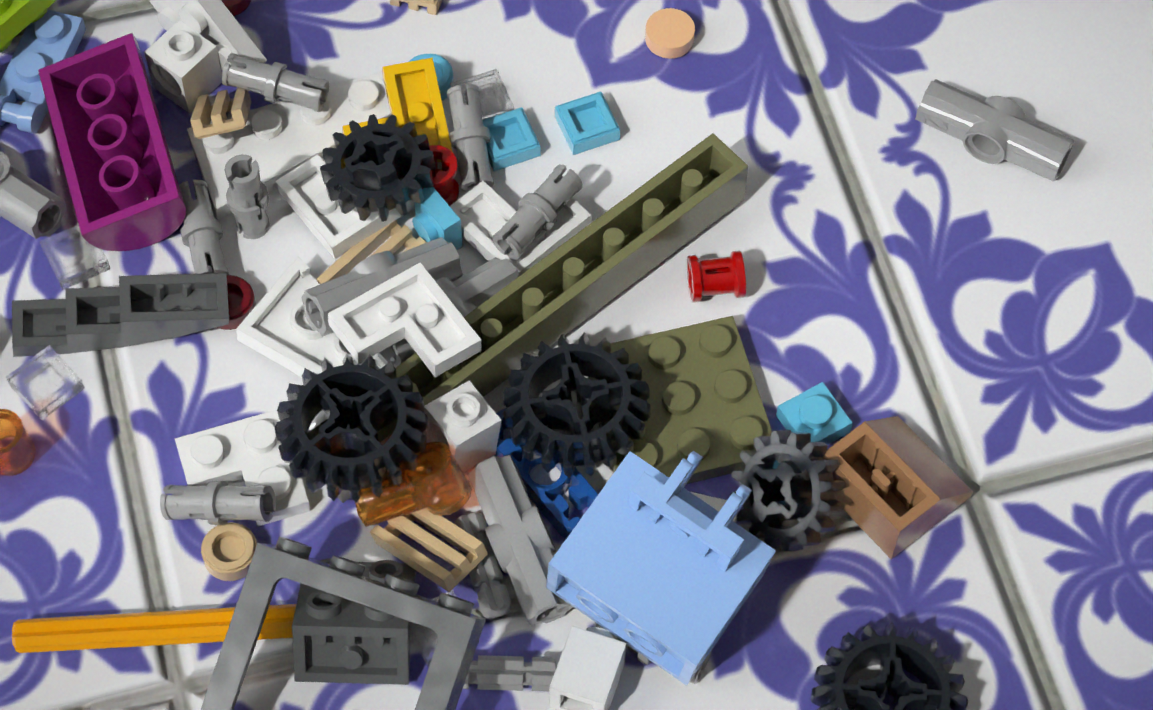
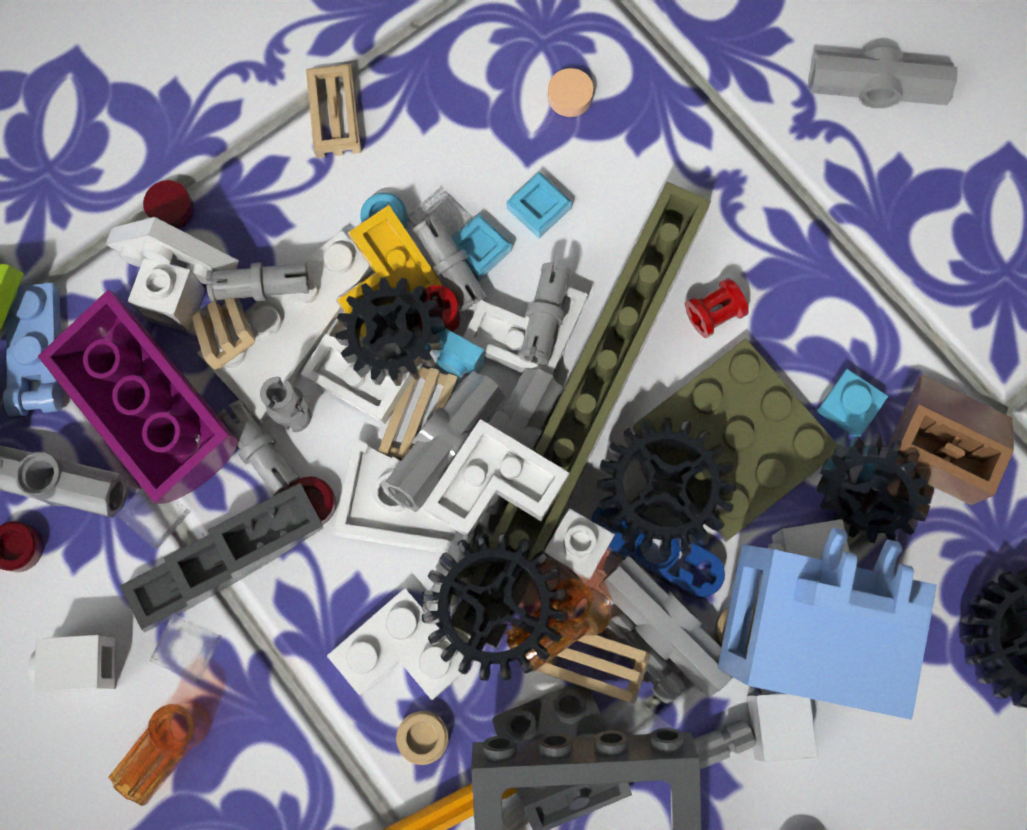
camera: 20 degrees left, 15 degrees up
(218, 503) = (395, 704): light grey pin -> none

